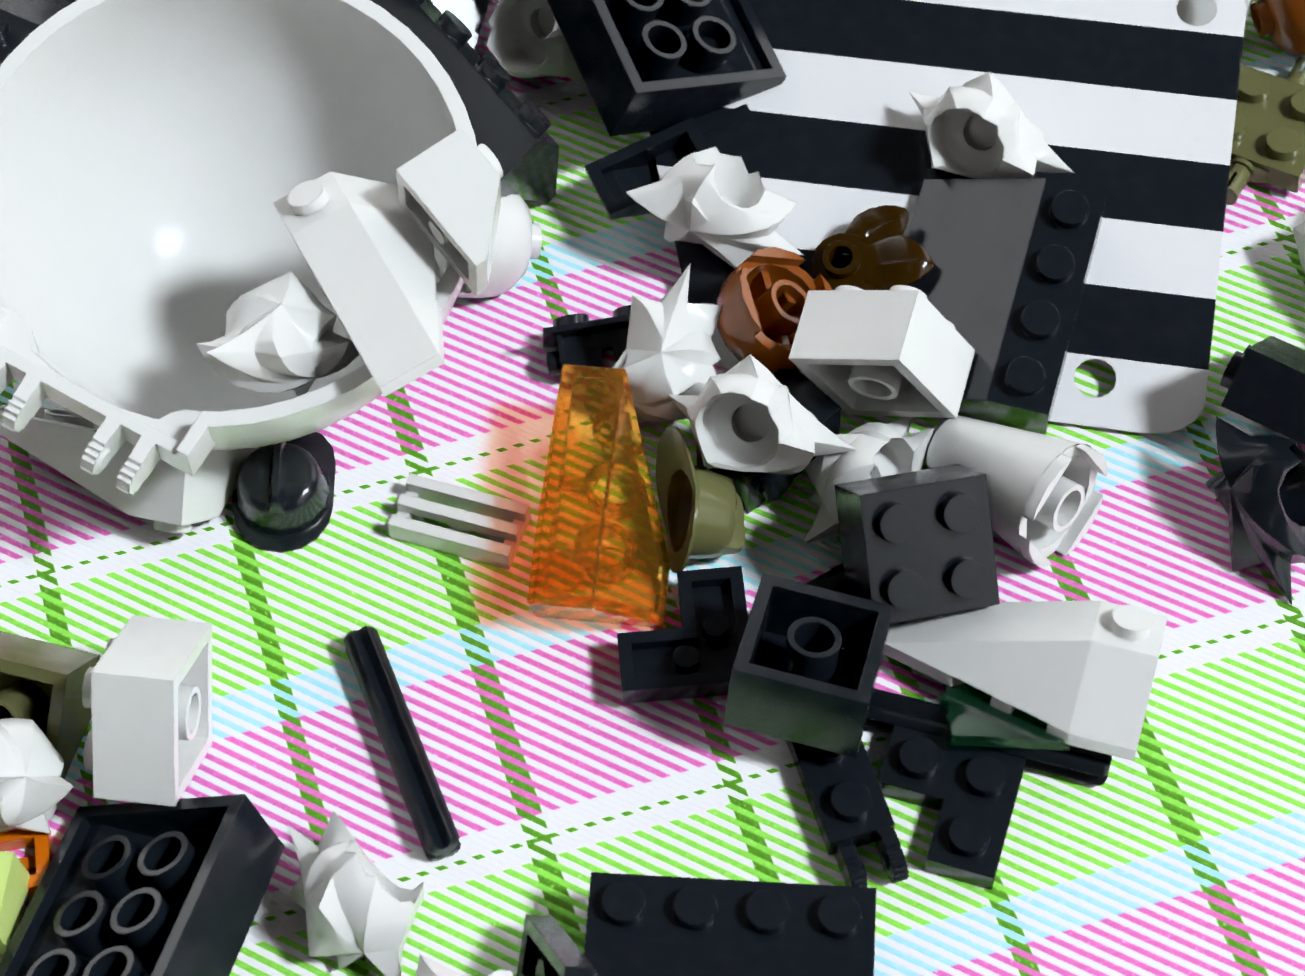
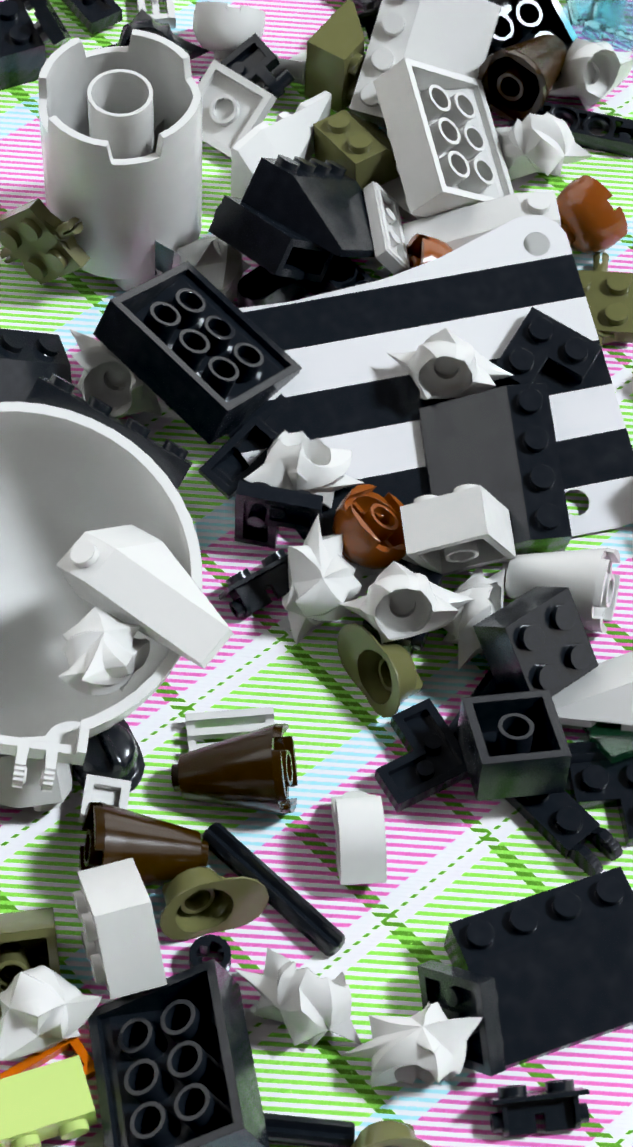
camera: 30 degrees left, 0 degrees up
(245, 547) = (105, 790): none -> white plate
(254, 621) = (157, 847): none -> dark brown cone
(276, 782) = (205, 945): none -> black bush
(297, 724) = (208, 903): none -> olive piece
(440, 573) = (241, 771): none -> dark brown cone
(456, 203) = (188, 528): white slope -> none
(542, 714) = (360, 838): none -> white brick
(598, 516) = (328, 701): clear orange wedge -> none
(647, 248) = (264, 508): none -> black plate
(878, 252) = (418, 468): dark brown plate -> none
(1142, 143) = (547, 342): none -> black plate

